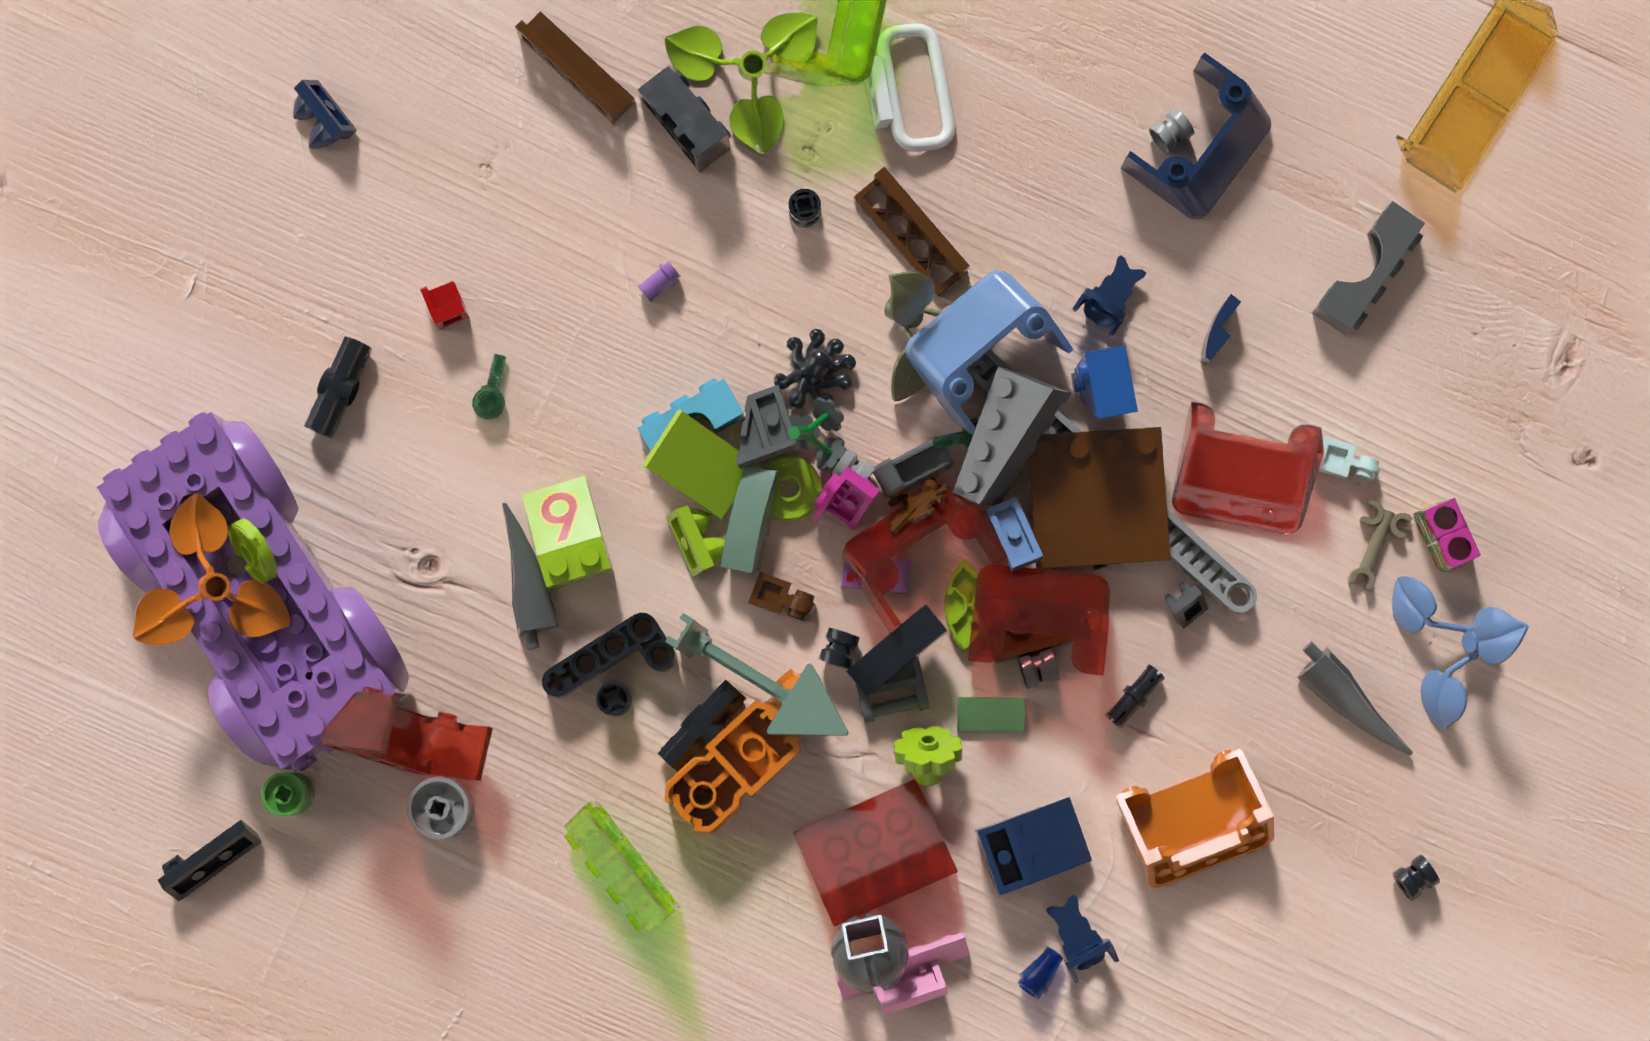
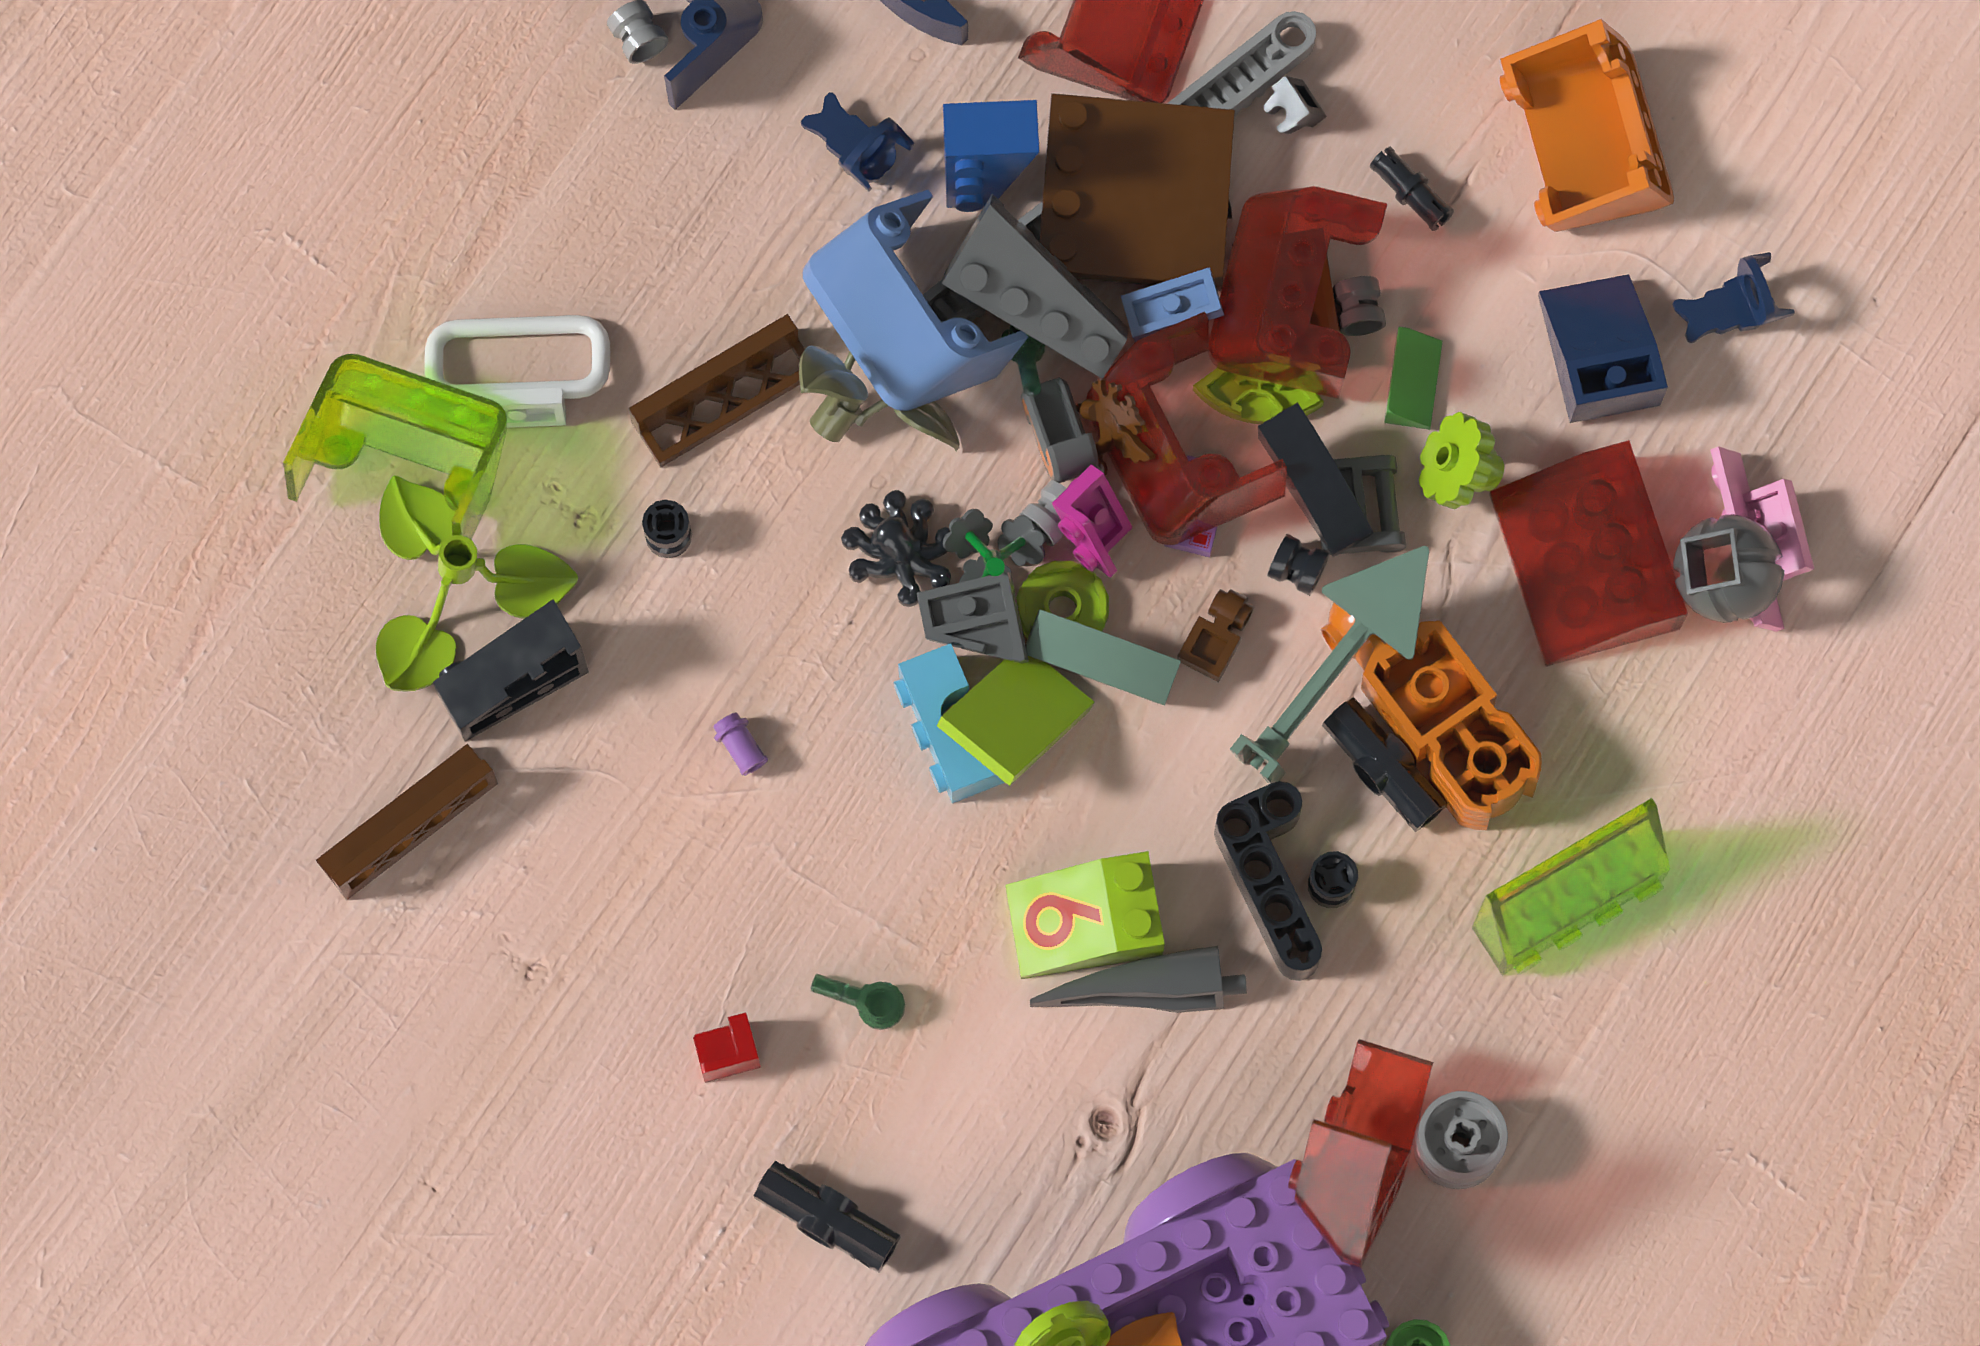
camera: 80 degrees left, 10 degrees down
(316, 102) = (431, 1180): dark blue tile -> none
(687, 529) = (1135, 740): lime tile -> none
(1040, 973) = (1776, 362): clear blue cone -> none

